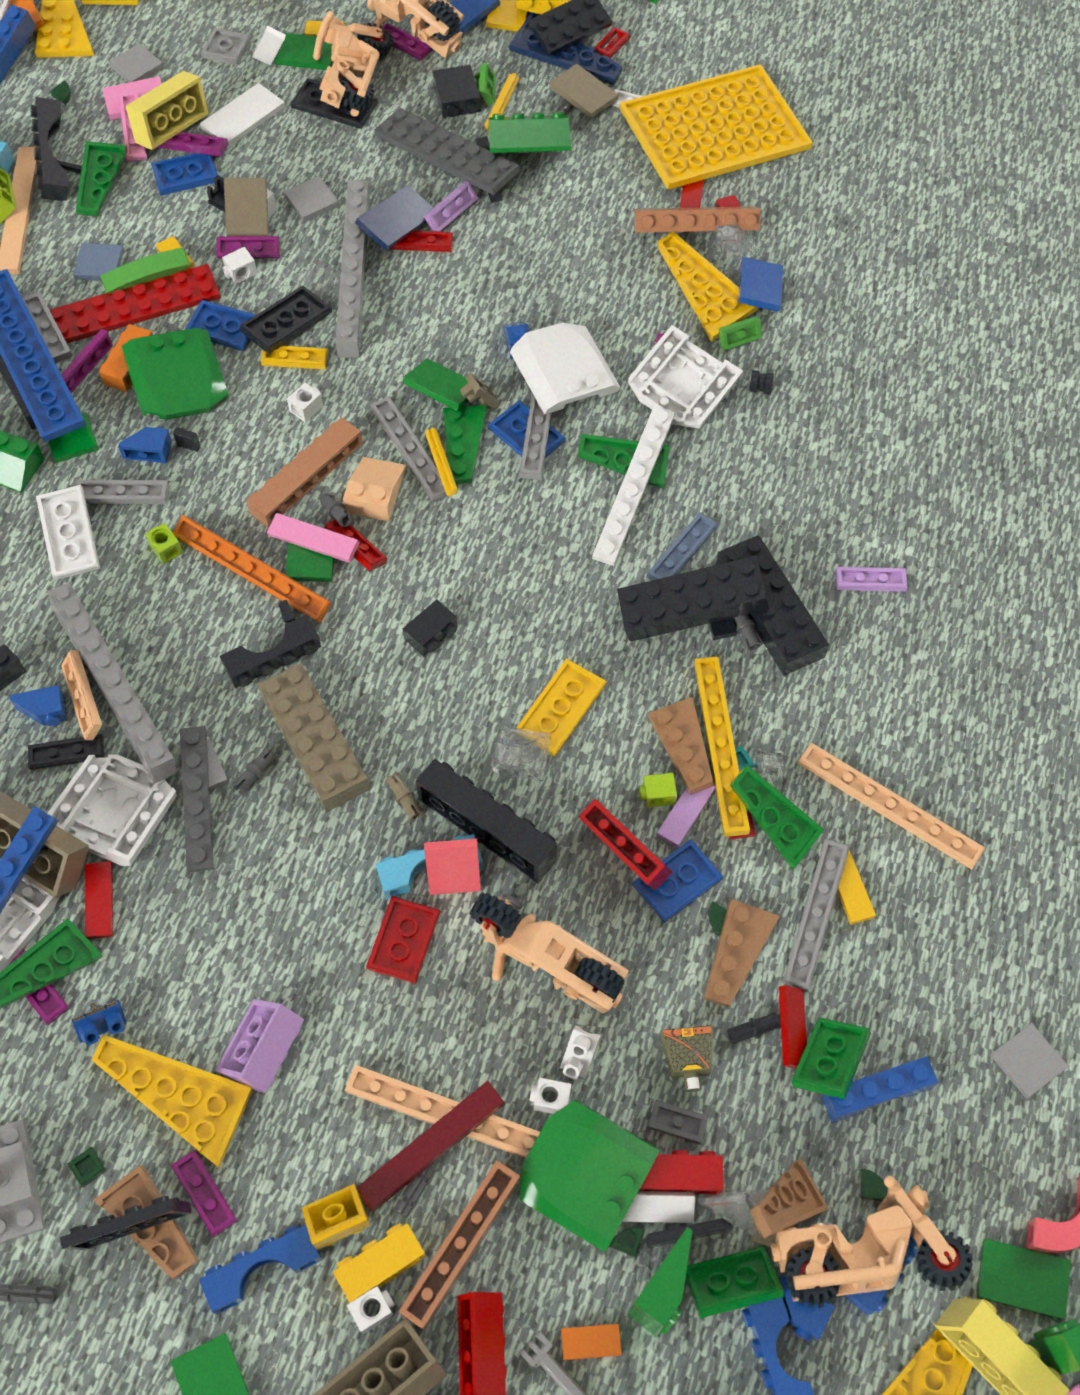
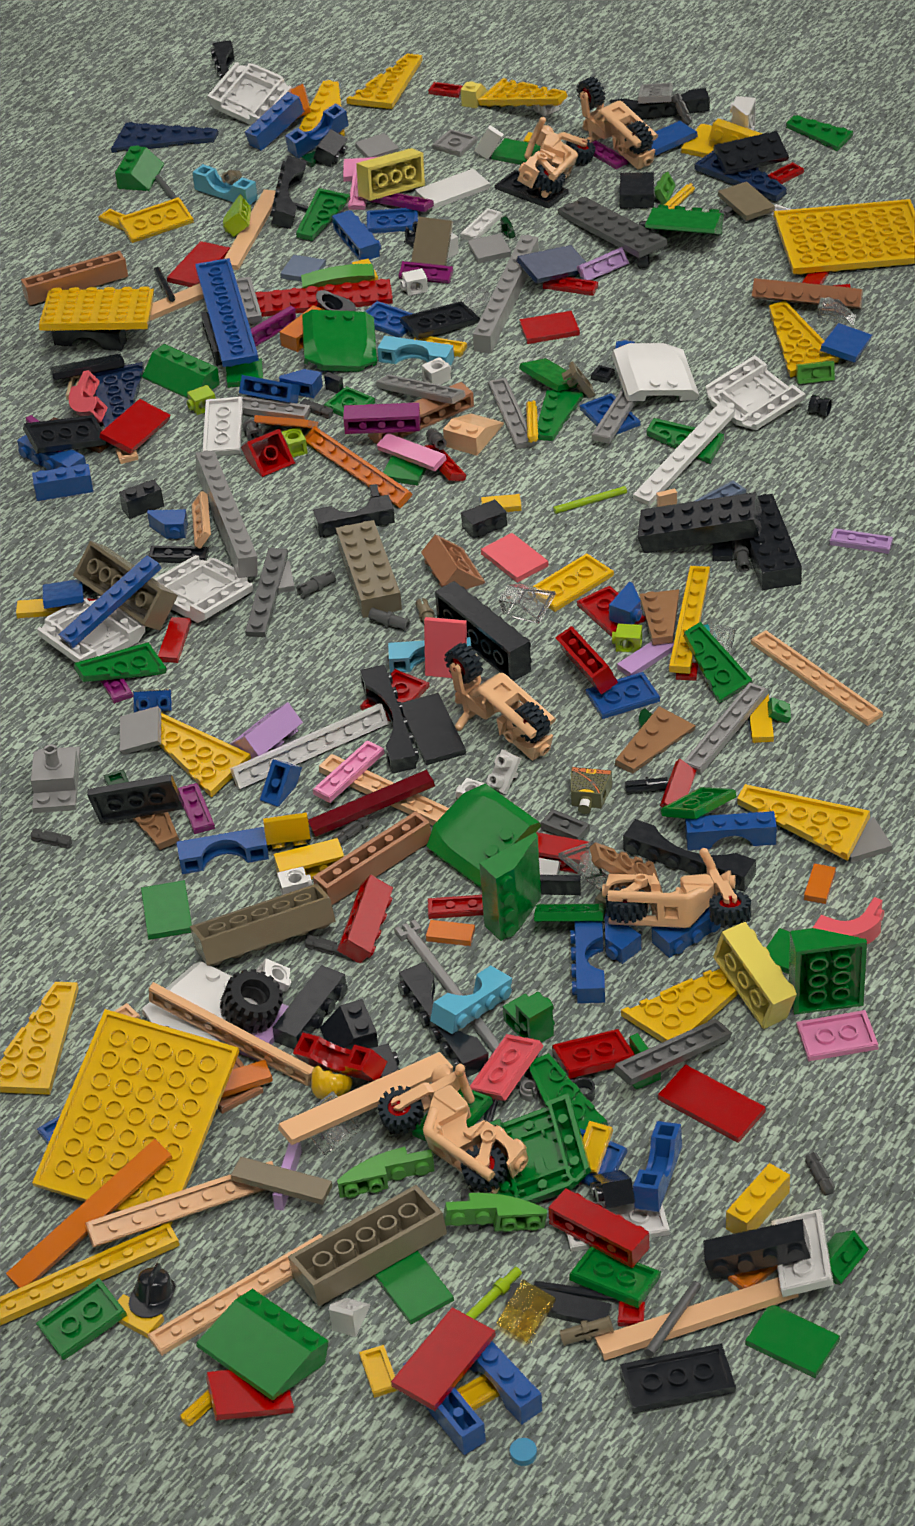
camera: 20 degrees right, 20 degrees down
(25, 493) = (198, 397): none -> lime brick
(74, 40) = (302, 142): none -> blue arch
(83, 76) = (331, 148): none -> black brick
(97, 1078) = (140, 730): none -> light grey tile
(108, 534) = (253, 428): none -> dark grey bush
(110, 464) = (269, 389): none -> blue brick
(136, 567) = (268, 453): none -> red slope
(145, 514) = (289, 422): none -> orange tile
(150, 204) = (356, 235): none -> blue brick
(154, 316) = (333, 302): none -> black piece
(176, 480) = (318, 409): none -> dark grey axle
(212, 465) = (348, 397): none -> green tile
(246, 374) = (396, 349): none -> medium azure arch
(265, 497) = (381, 418): none -> magenta brick
(291, 164) = (481, 224): none -> white tile
(297, 436) = (420, 389): none -> light grey tile
(303, 1127) = (280, 782): none -> blue slope
(321, 1057) = (311, 744): none -> white plate
(324, 167) = (507, 227): none -> dark green tile
(361, 813) = (389, 619): none -> dark grey pin
(385, 945) = (378, 689): none -> black arch
(386, 1095) = (348, 771): none -> bright pink tile
(413, 711) = (450, 563): none -> nougat slope
(416, 309) = (549, 327): none -> red tile
(447, 593) = (509, 502): none -> yellow tile
(466, 989) = (432, 729): none -> black tile
(482, 679) = (514, 557): none -> coral tile
(499, 371) = (602, 374): none -> black tile
(544, 569) = (590, 499): none -> lime bar
(590, 1290) = (455, 906): none -> red tile
(621, 744) = (597, 608): none -> red tile
(635, 557) = (666, 497): none -> light nougat tile
(645, 744) = (626, 606): none -> blue slope
(869, 871) = (779, 710): none -> green plate
(900, 1155) = (646, 841): none -> black arch
(977, 1050) = (818, 821): none -> yellow wing
(1005, 1147) = (819, 883): none -> orange tile

